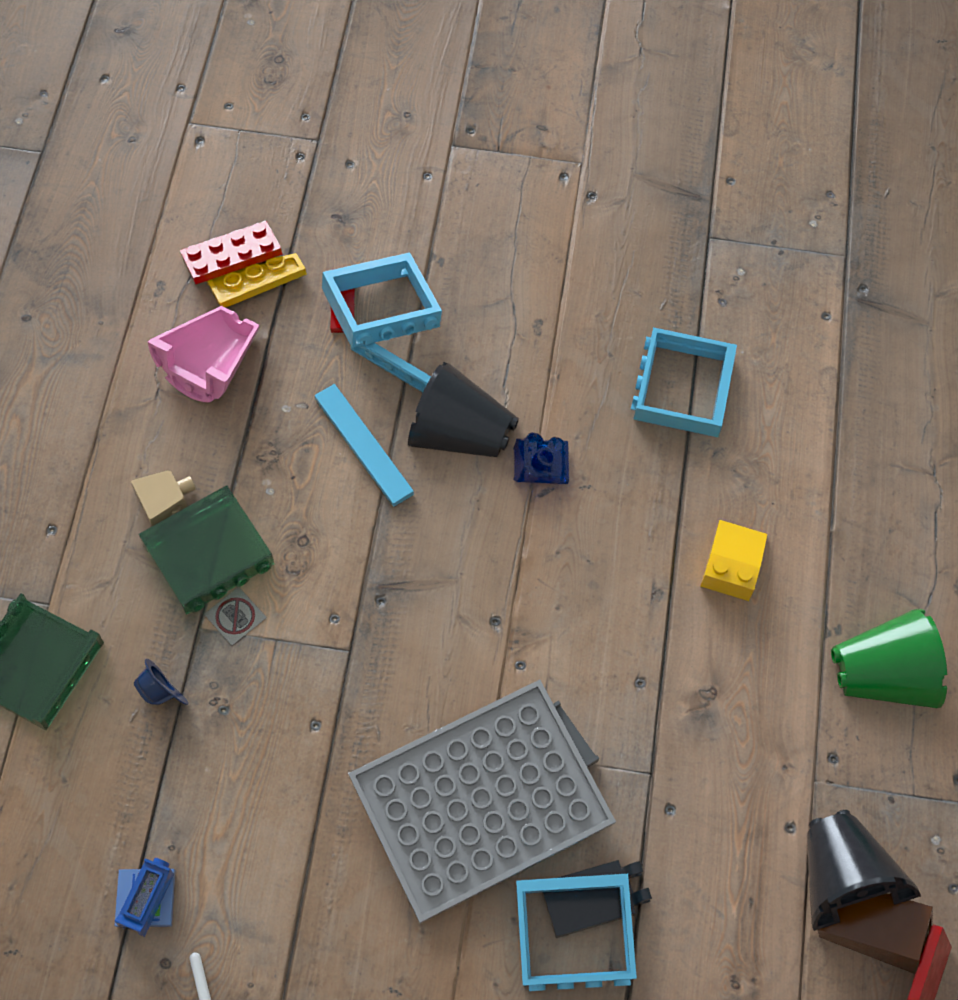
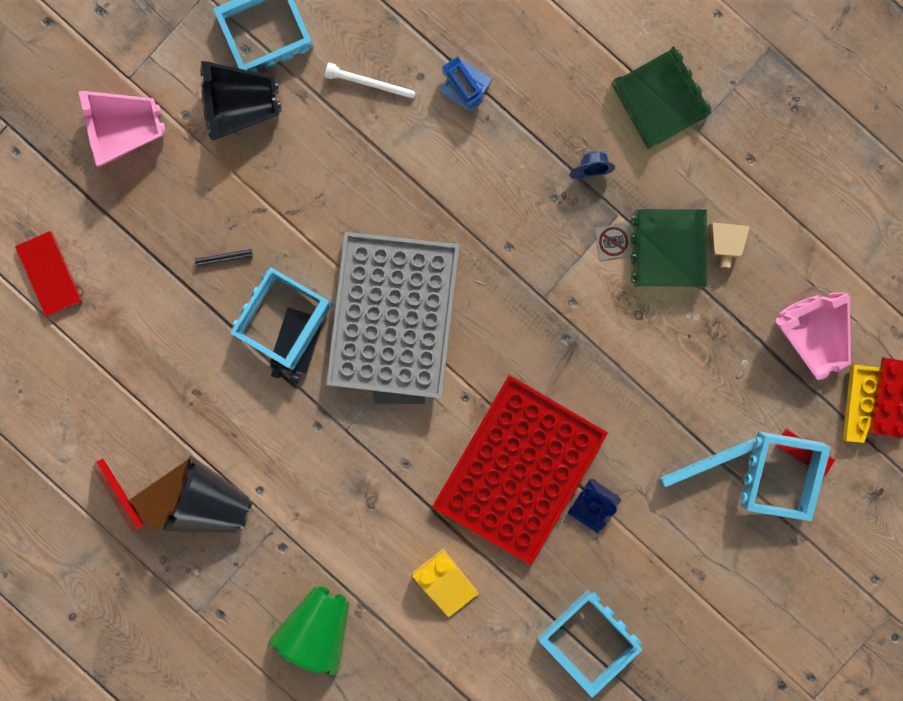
camera: 130 degrees right, 25 degrees up
(364, 445) = (683, 396): medium azure tile -> none
(460, 416) = (661, 474): black cone -> none
(558, 558) = (519, 469): none -> red plate

